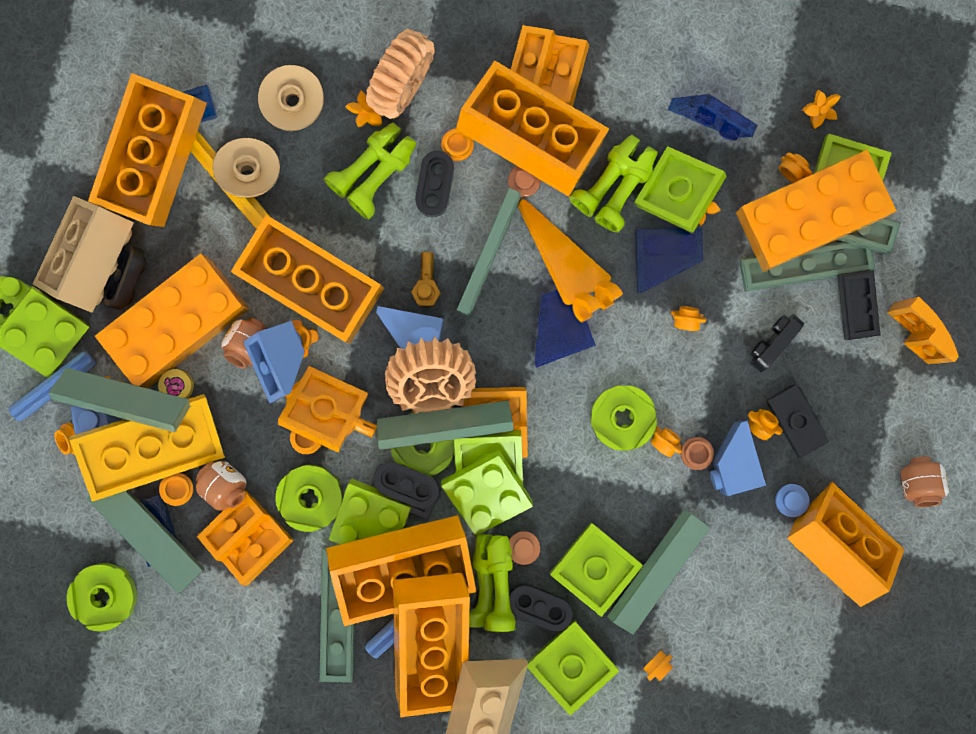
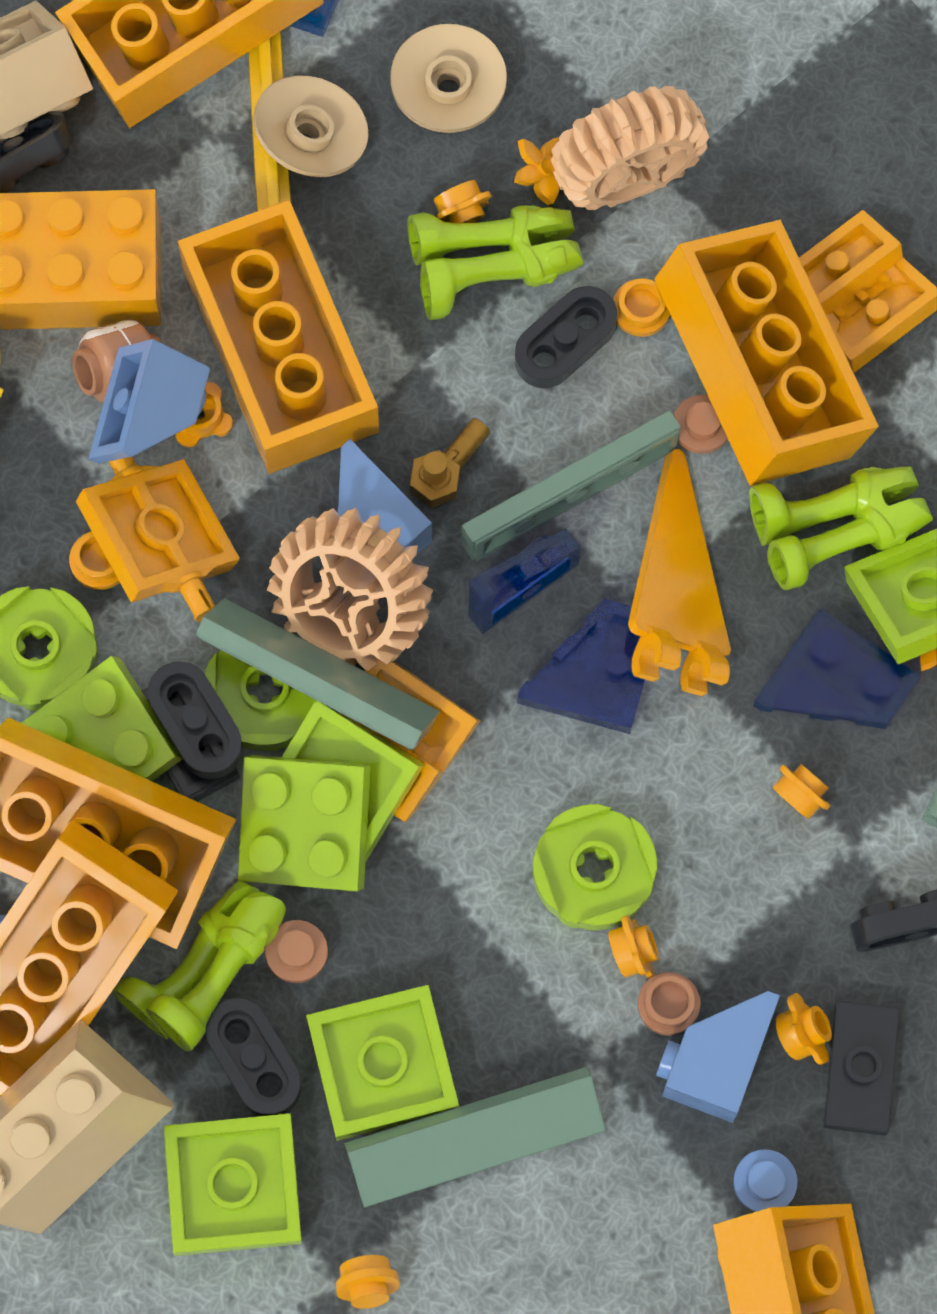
camera: 30 degrees right, 15 degrees down
(342, 155) = (462, 203): none -> light orange plate
(502, 298) = (520, 578): none -> clear blue wing

